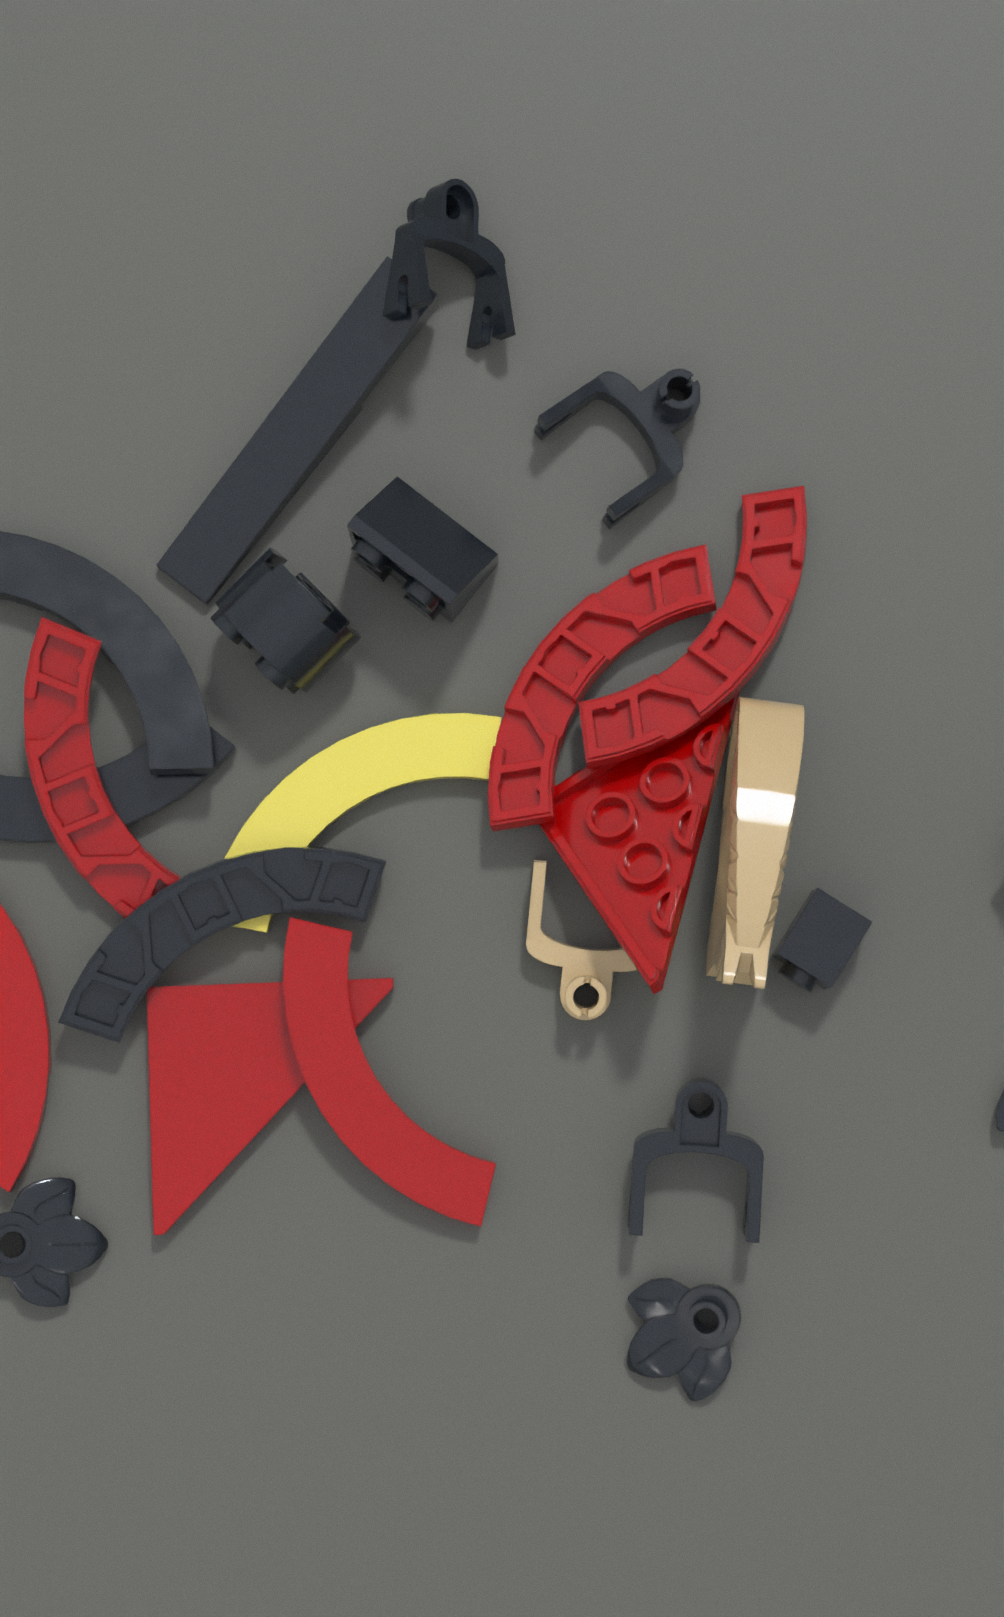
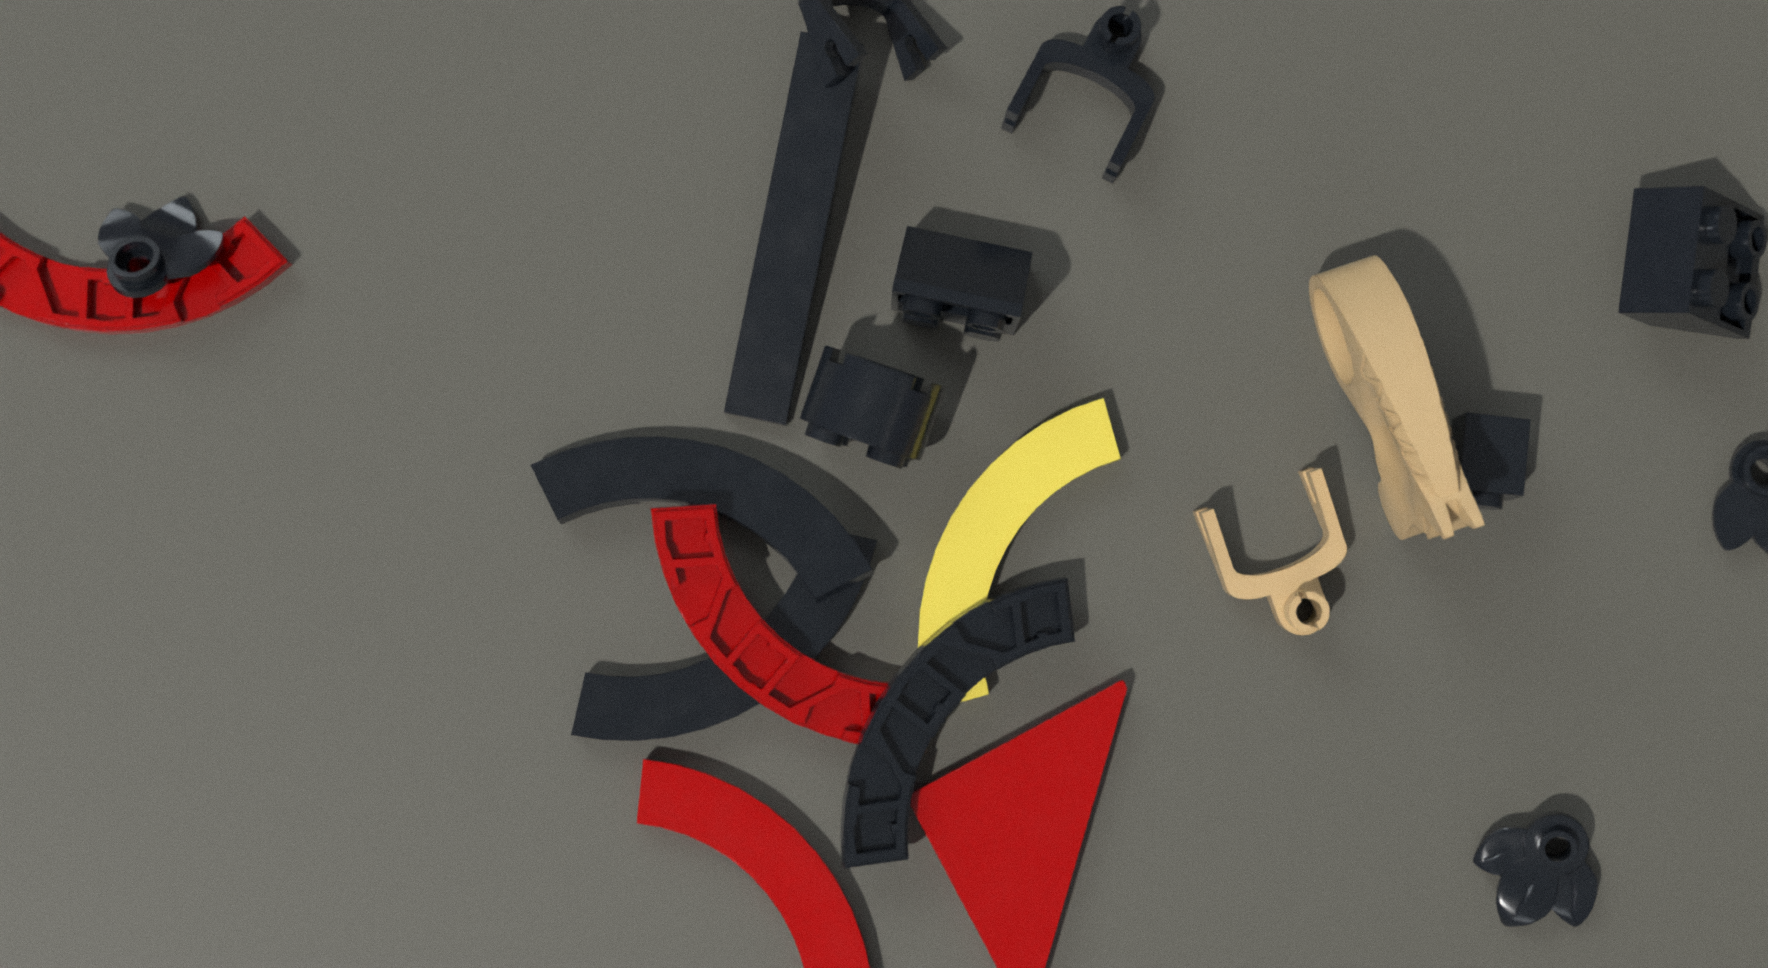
camera: 30 degrees left, 0 degrees up
(351, 1094) = (1135, 800): red tile -> none
(570, 663) = (1140, 321): red tile -> none
(636, 837) = (1276, 436): red tile -> none
(699, 1134) = (1465, 685): black piece -> none
(726, 650) = (1275, 243): red tile -> none

